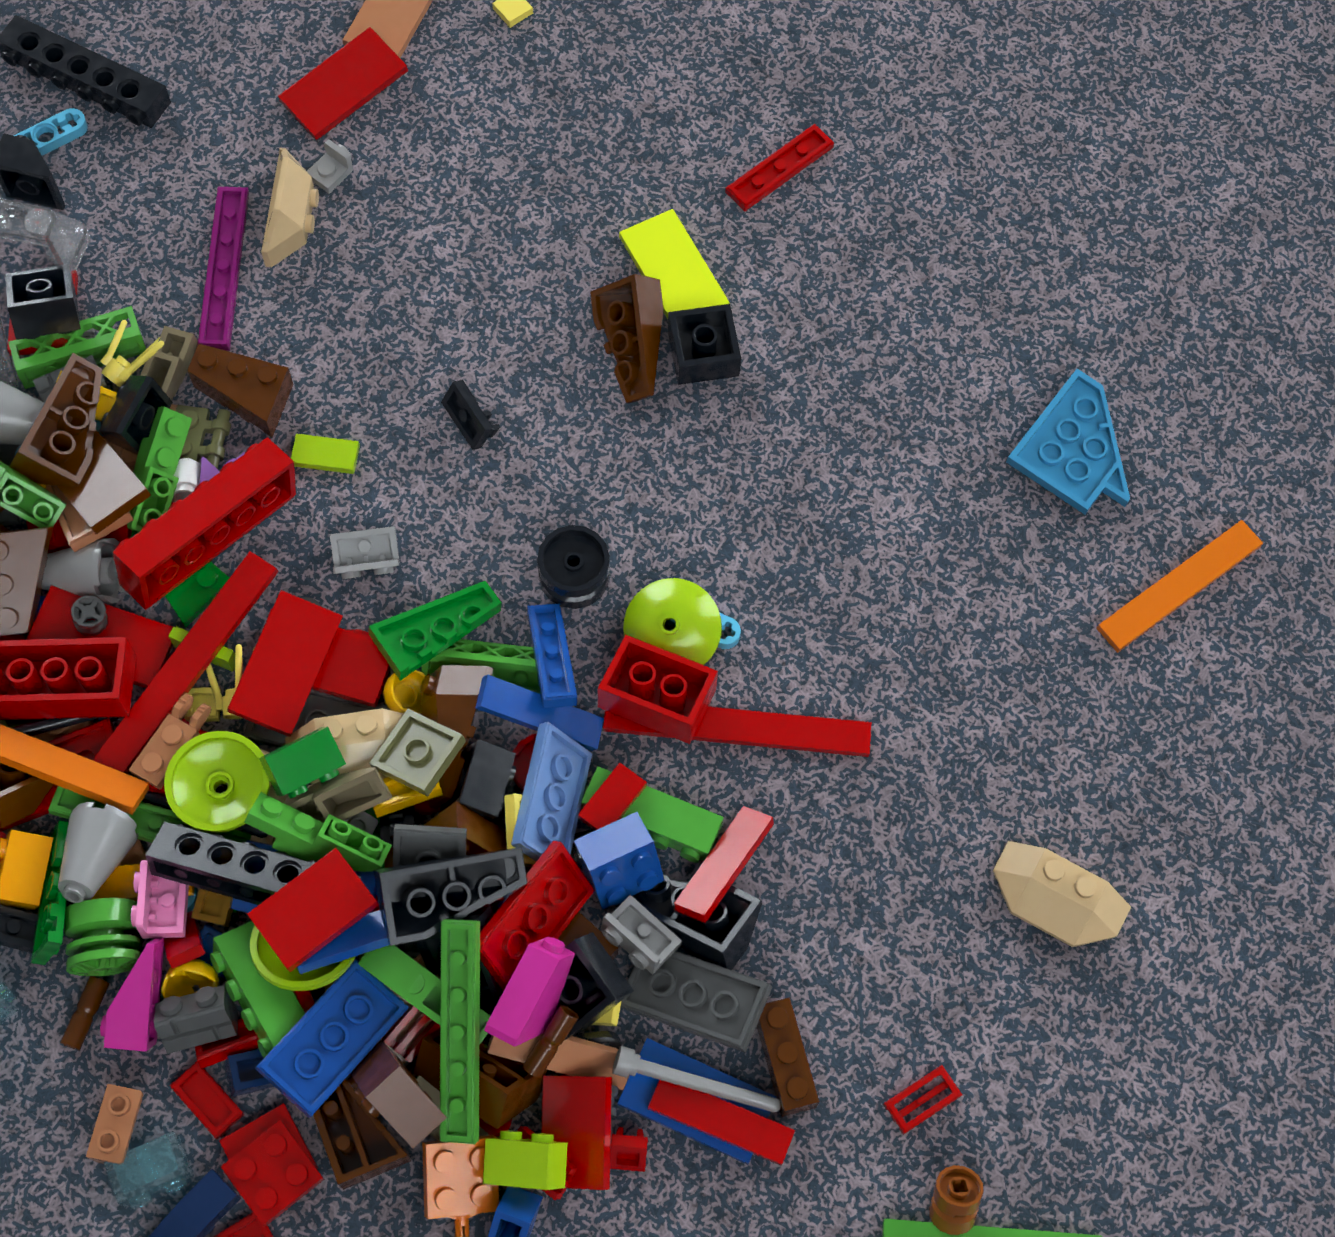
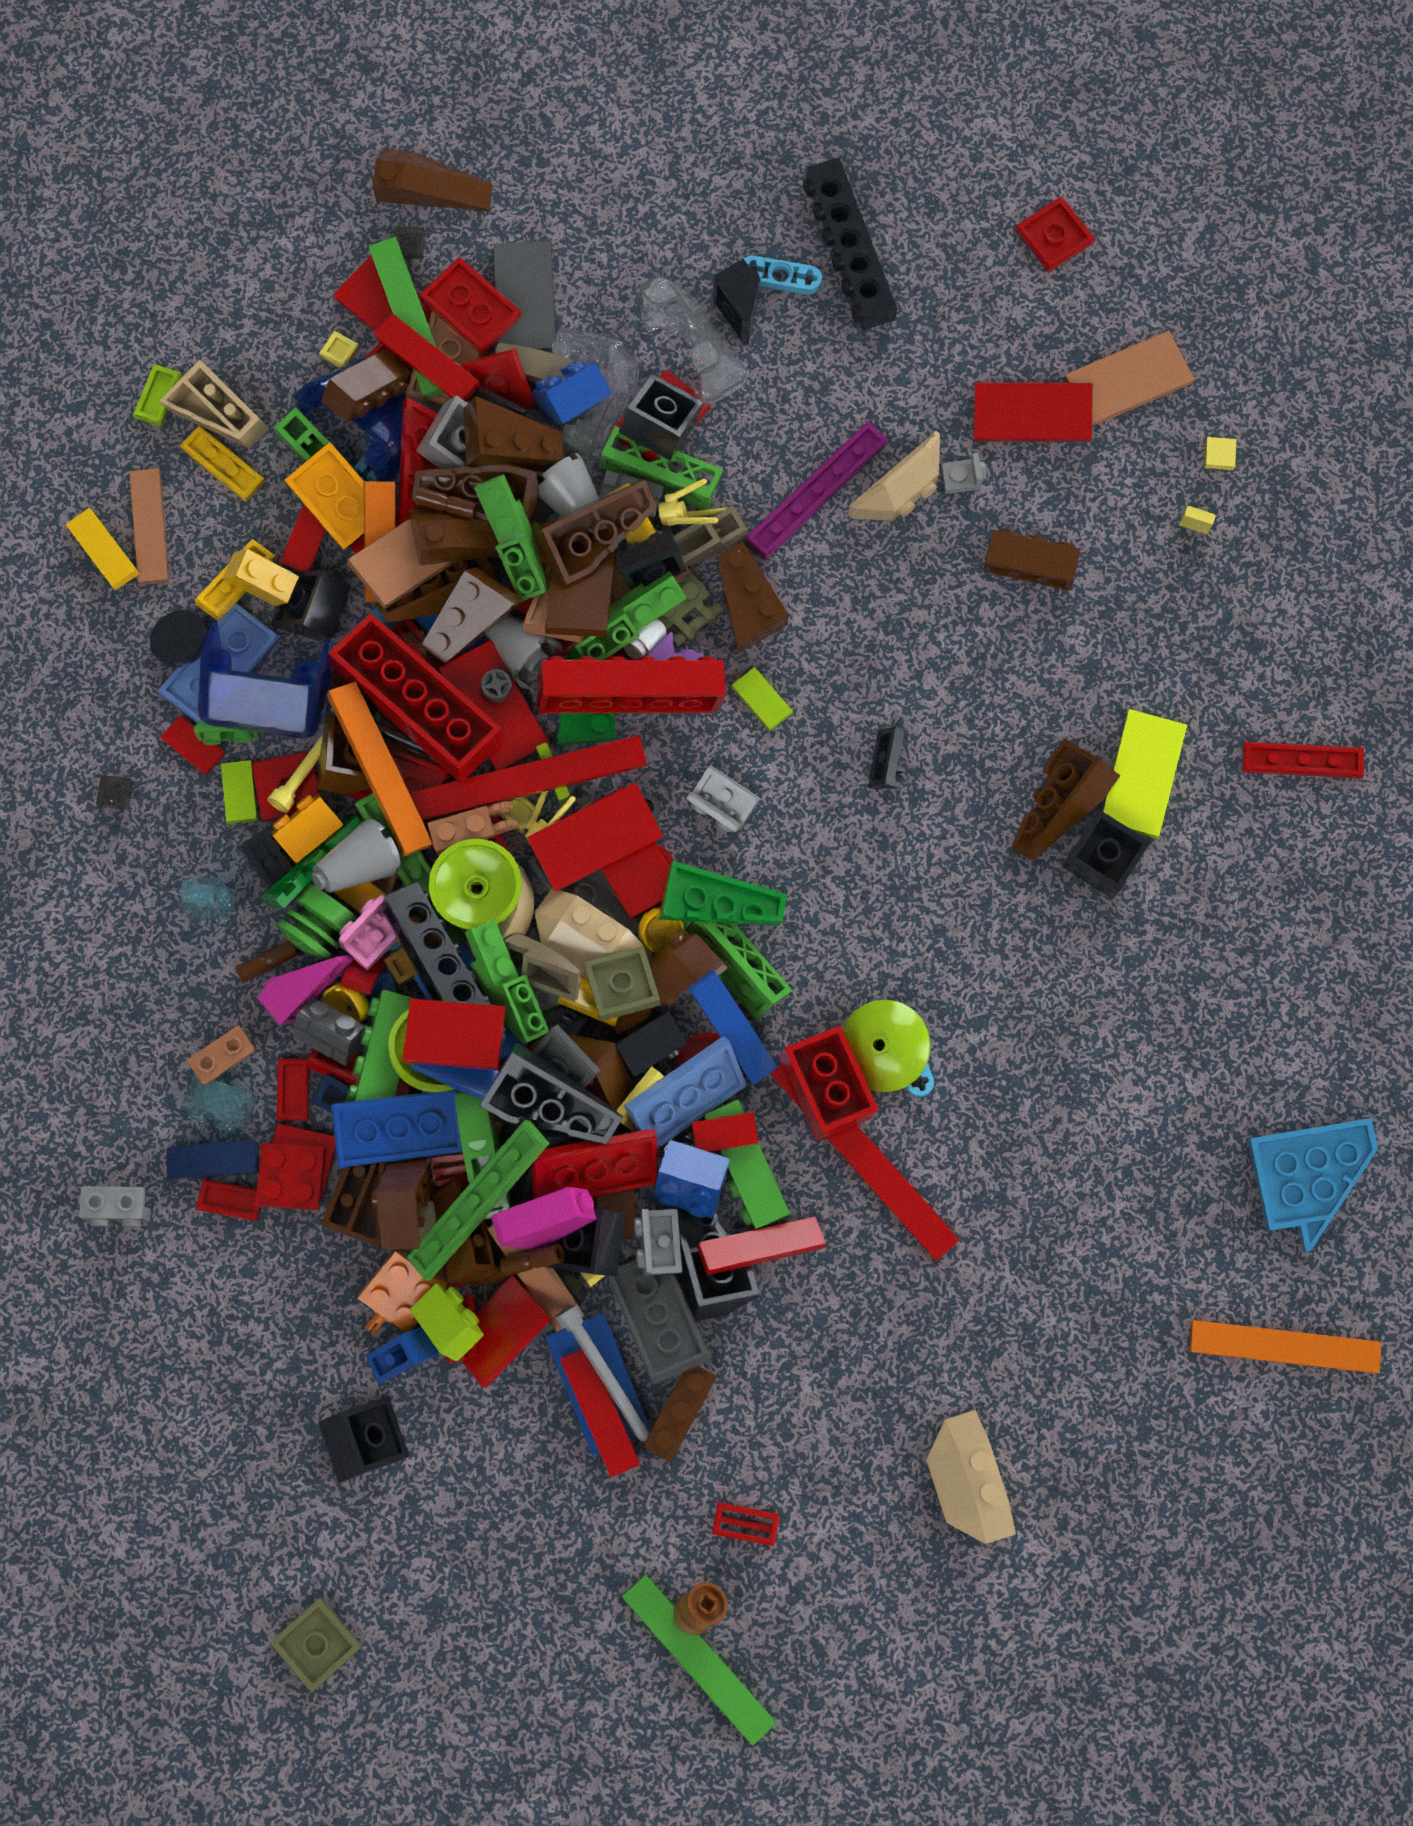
camera: 45 degrees right, 10 degrees up
(302, 762) = (539, 923): green brick -> none
(442, 185) = (1031, 559): none -> reddish brown brick
(541, 62) = (1197, 520): none -> light yellow tile
(551, 656) = (779, 992): blue tile -> none
(573, 566) = (852, 958): black wheel -> none
(628, 1151) = (522, 1374): red tile -> none

